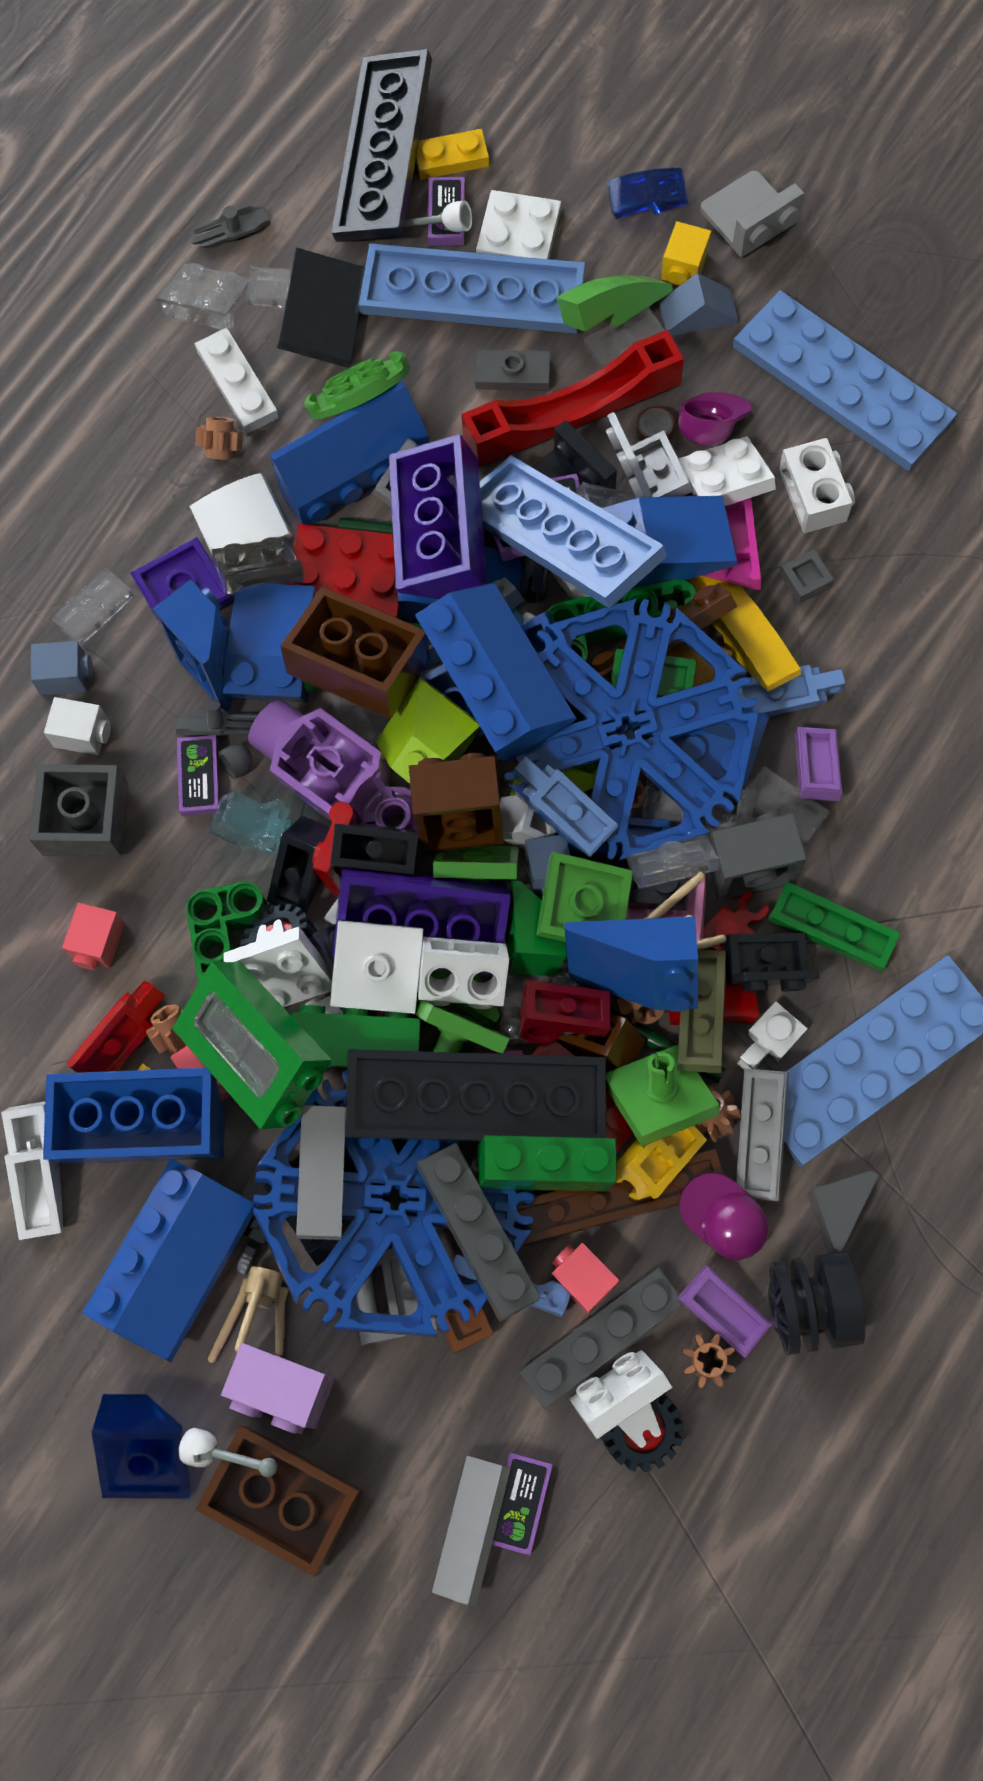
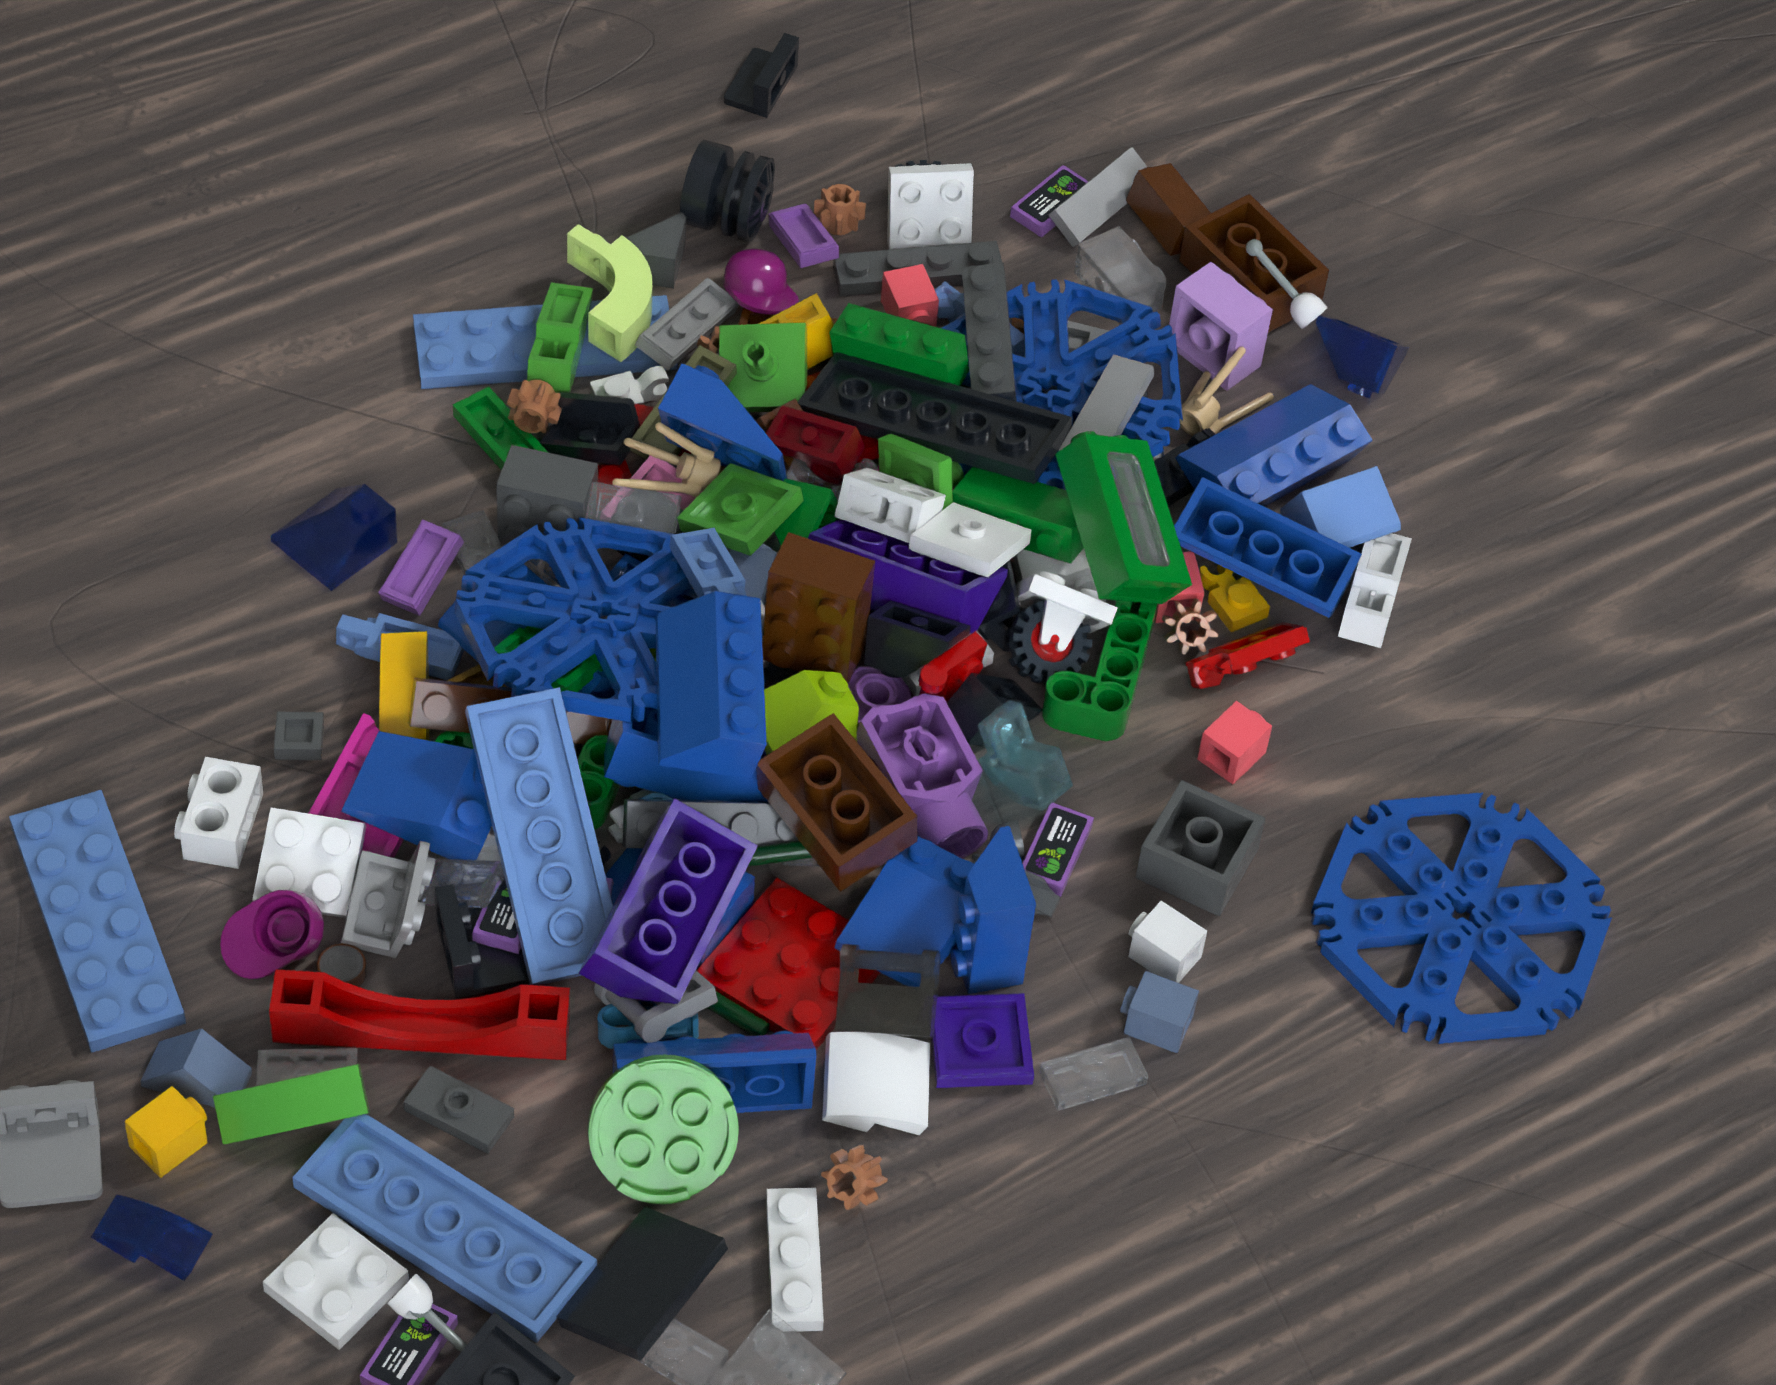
camera: 165 degrees left, 20 degrees down
(85, 1228) = (1347, 509): none -> medium blue slope
(395, 1539) = (1165, 204): none -> reddish brown brick
(405, 1425) = (1119, 267): none -> clear brick
(825, 1123) = (627, 276): none -> yellowish green arch
(829, 954) = (534, 406): none -> nougat gear
(856, 1040) = (560, 336): none -> bright green slope
(884, 1516) = (764, 77): none -> black panel
(907, 770) = (340, 534): none -> clear blue slope

